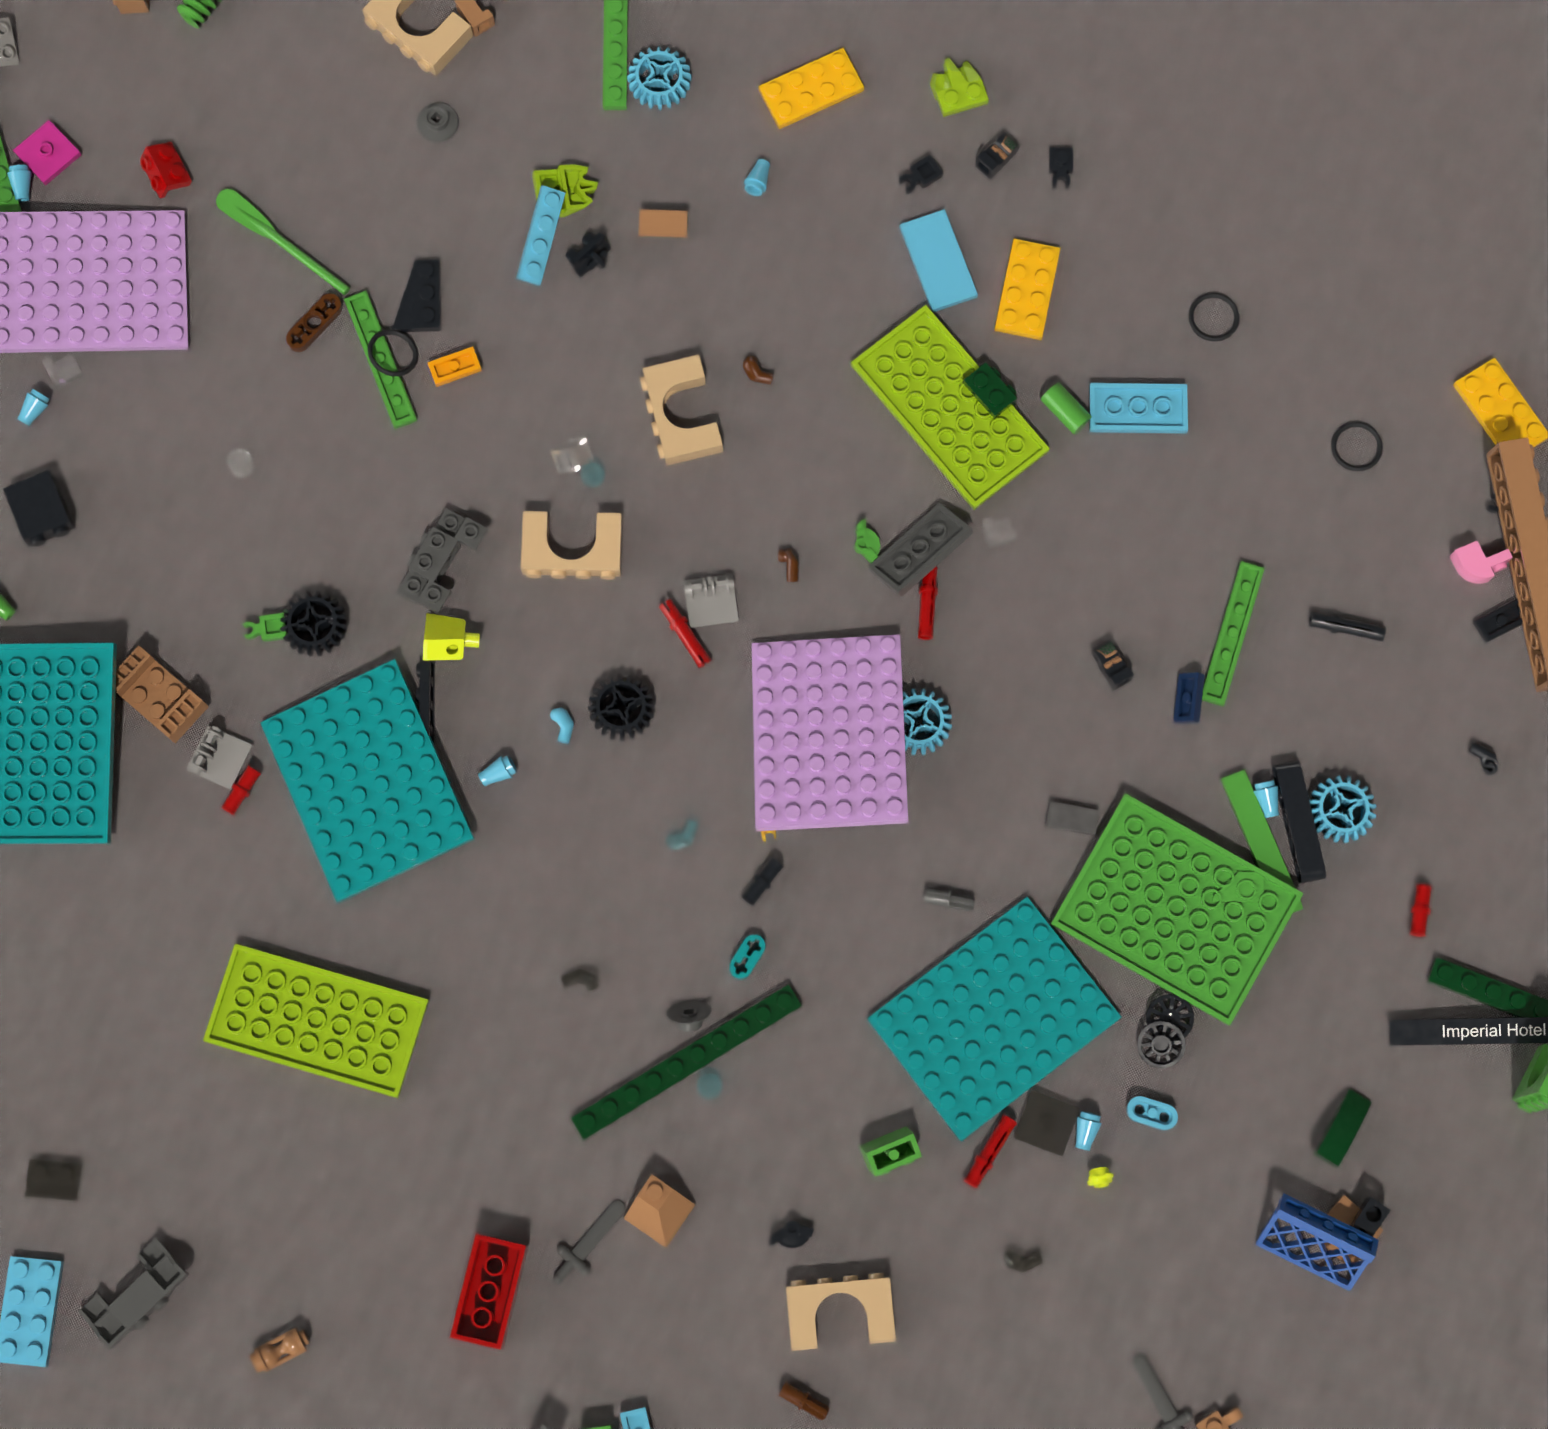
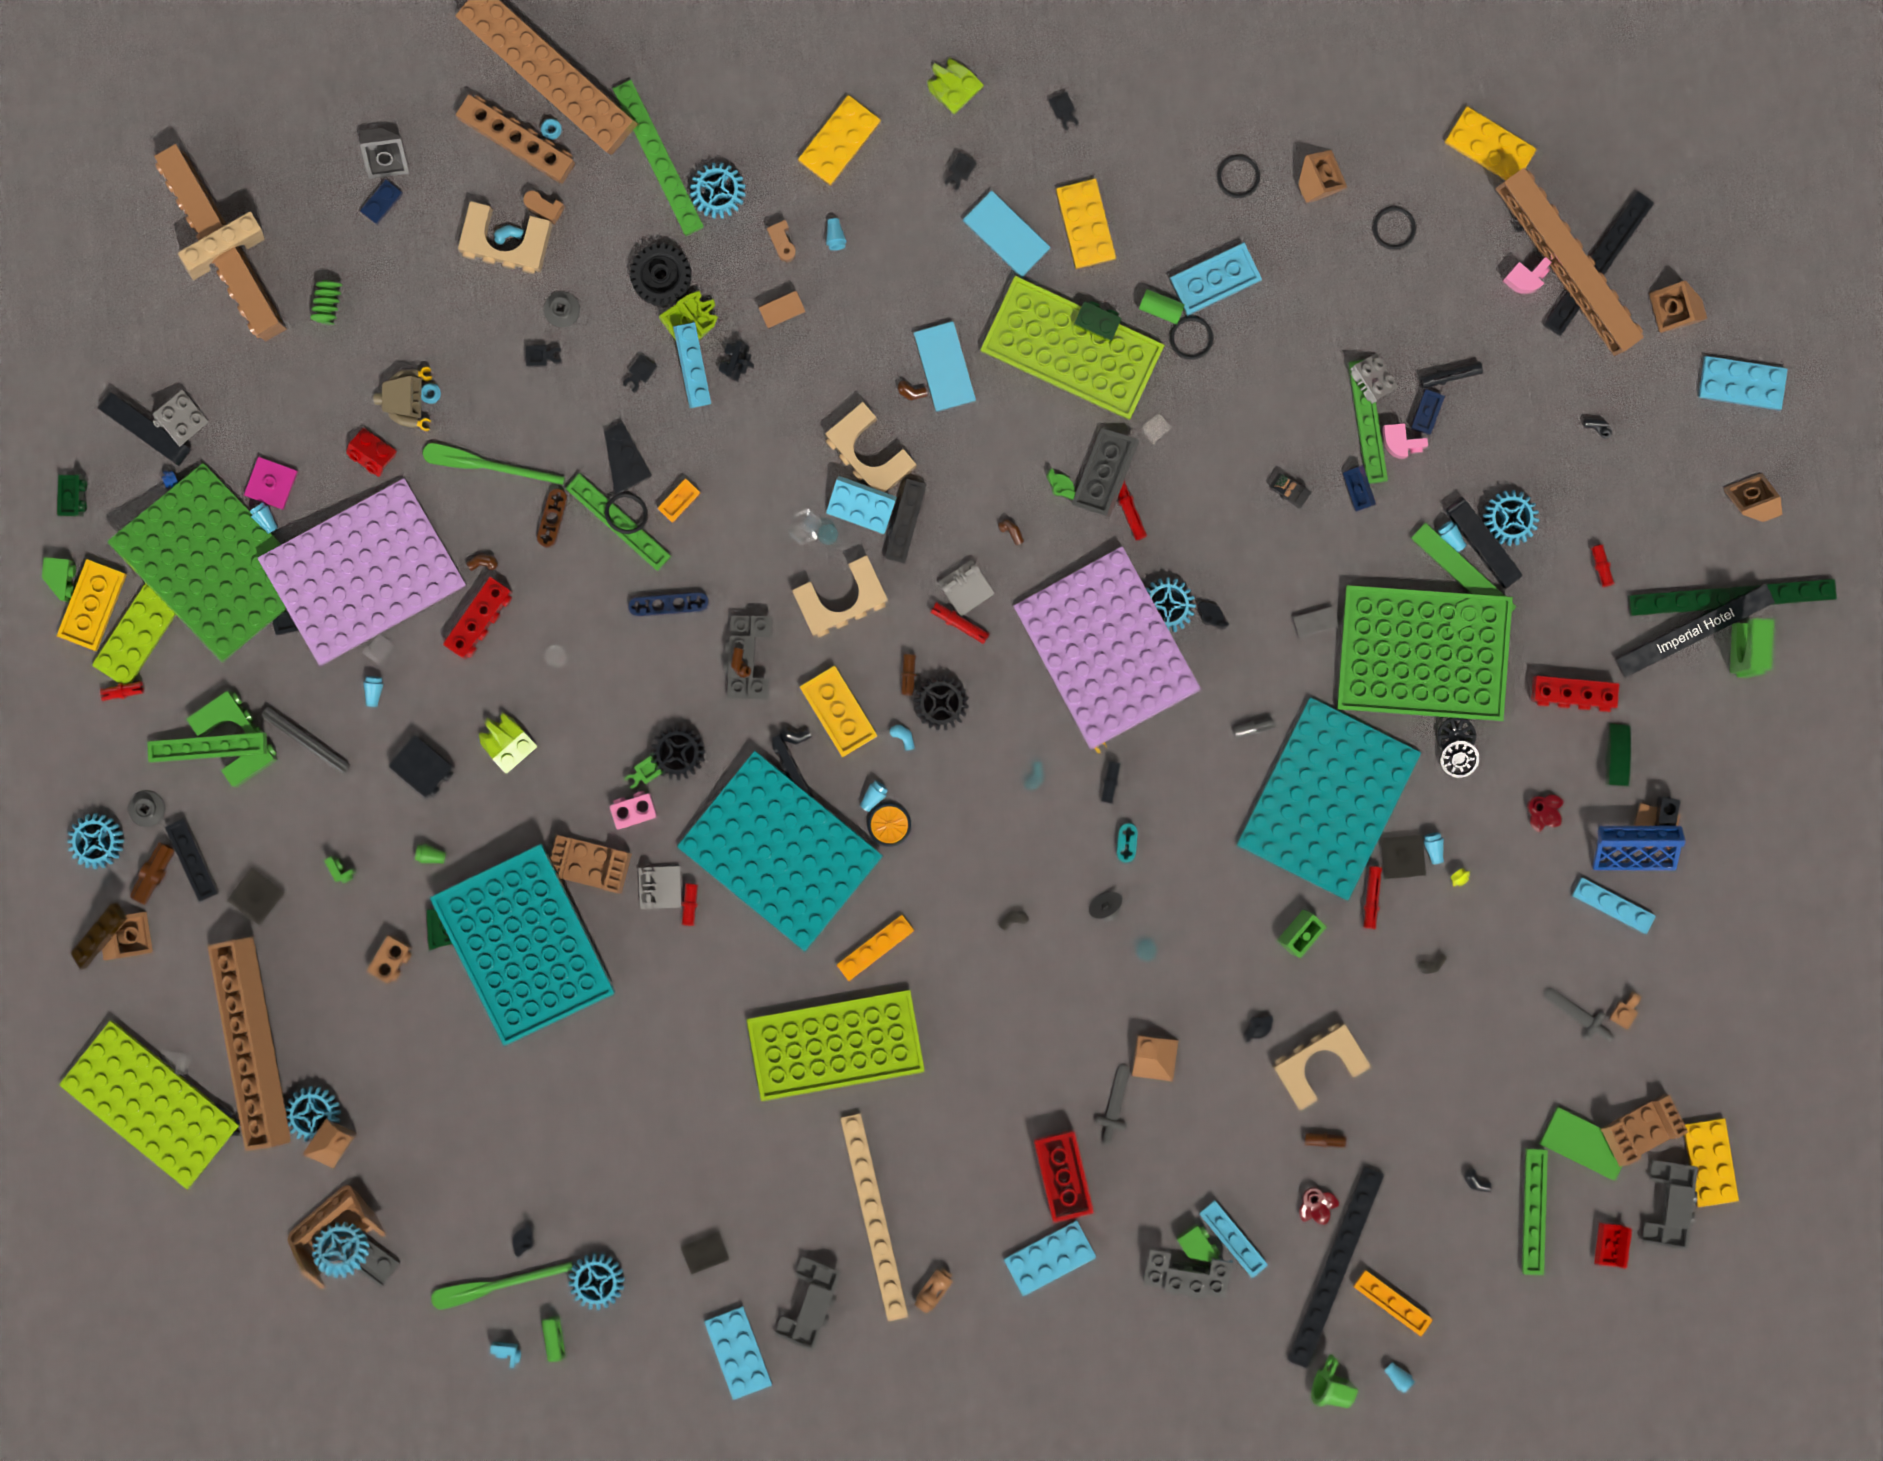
camera: 30 degrees left, 10 degrees up
(141, 526) = (506, 742): none -> lime plate
(181, 385) = (478, 618): none -> red brick
(219, 330) = (484, 560): none -> reddish brown arm
(226, 129) = (403, 397): none -> dark tan torso
(233, 668) = (635, 815): none -> bright pink brick
(256, 134) = (427, 387): none -> medium azure plate
(258, 1235) = (874, 1217): none -> tan plate
(385, 470) = (668, 604): none -> dark blue beam
(389, 154) = (539, 356): none -> black plate
(415, 19) = (507, 231): none -> medium azure arm
(415, 936) = (875, 947): none -> light orange plate
(424, 558) = (738, 664): none -> reddish brown arm
(428, 1380) = (1049, 1258): none -> medium azure plate
(446, 638) = (784, 715): neon yellow torso -> none
(446, 670) = (794, 737): none -> black arm
(485, 219) = (642, 371): none -> black plate
(499, 811) = (889, 824): none -> light orange wheel
(507, 664) = (838, 711): none -> yellow plate
(552, 117) = (651, 261): none -> black wheel
(602, 661) = (908, 674): none -> reddish brown axle
(643, 459) = (861, 505): none -> medium azure plate
(681, 500) = (905, 521): none -> black plate
(686, 1062) = (1120, 941): dark green plate -> none
(697, 161) = (784, 249): none -> medium nougat leg
(804, 363) = (944, 366): none -> medium azure tile
(962, 757) = (1212, 615): none -> black piece
(997, 155) = (1011, 126): black leg -> none
(1081, 479) = (1172, 342): none -> black tyre
(1151, 1113) = (1475, 812): medium azure plate -> none
(1231, 1155) = (1548, 812): none -> dark red plate
(1253, 671) = (1397, 444): none -> bright pink brick
(1259, 1296) = (1613, 905): none -> medium azure plate
(1261, 588) = (1375, 377): none -> light grey hinge
(1301, 355) = (1320, 176): none -> medium nougat slope
(1302, 653) = (1427, 412): none -> dark blue plate
(1325, 1034) = (1575, 692): none -> red brick

